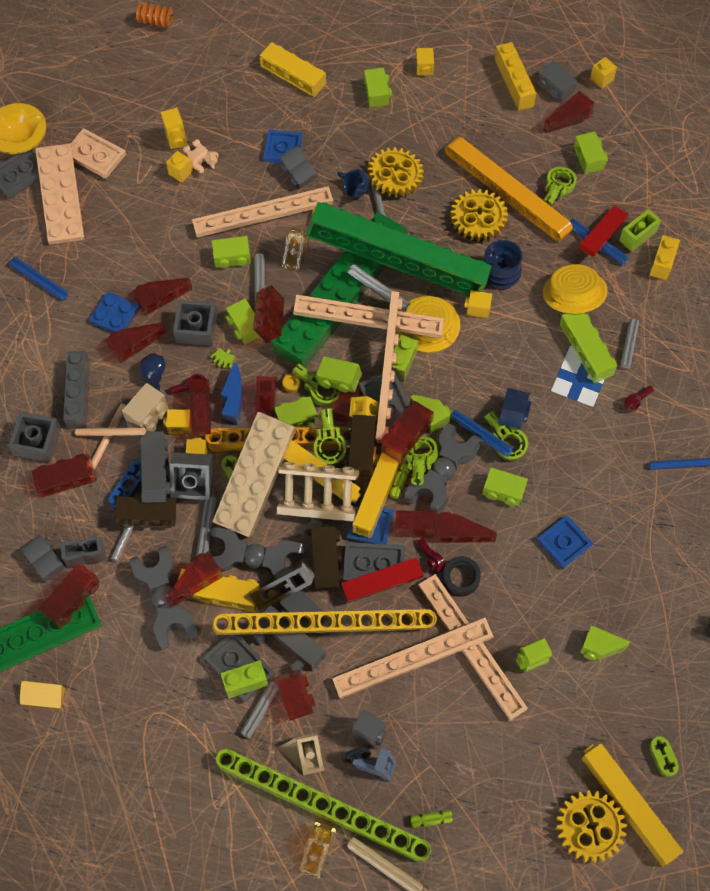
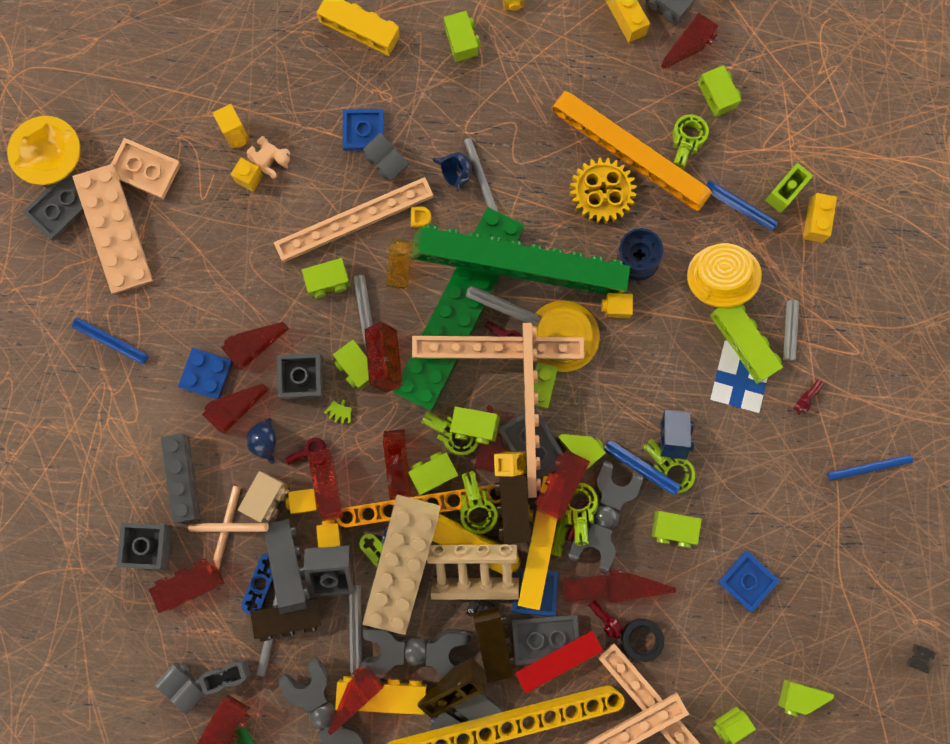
camera: 10 degrees left, 15 degrees up
(232, 396) = (359, 459): blue slope -> none
(291, 383) = (421, 433): yellow tile -> none
(395, 172) = (500, 131): yellow gear -> none
(603, 231) = (747, 193): red tile -> none

